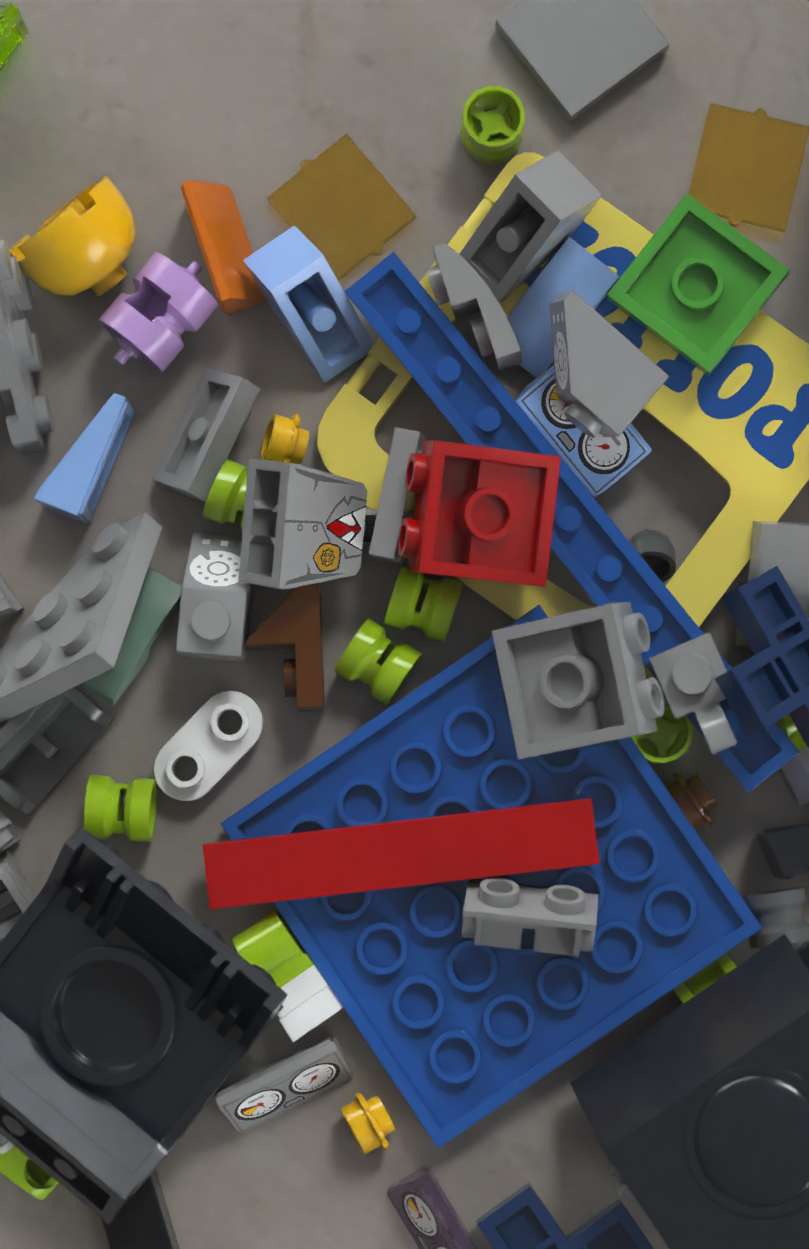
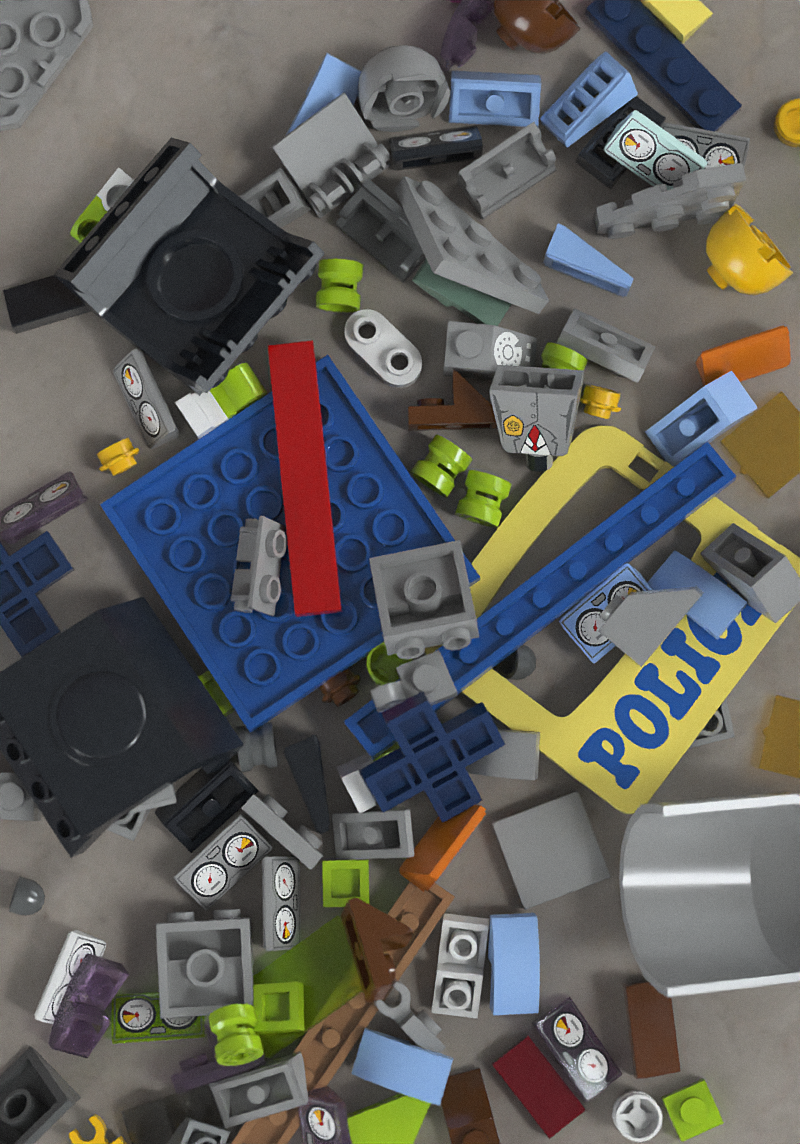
camera: 90 degrees right, 0 degrees up
(151, 320) = (693, 311): lavender wheel -> none
(395, 501) = (574, 484): light grey plate -> none
(461, 285) = (706, 526): light grey slope -> none
(480, 513) = (543, 532): red plate -> none
(697, 284) = (710, 692): bright green plate -> none

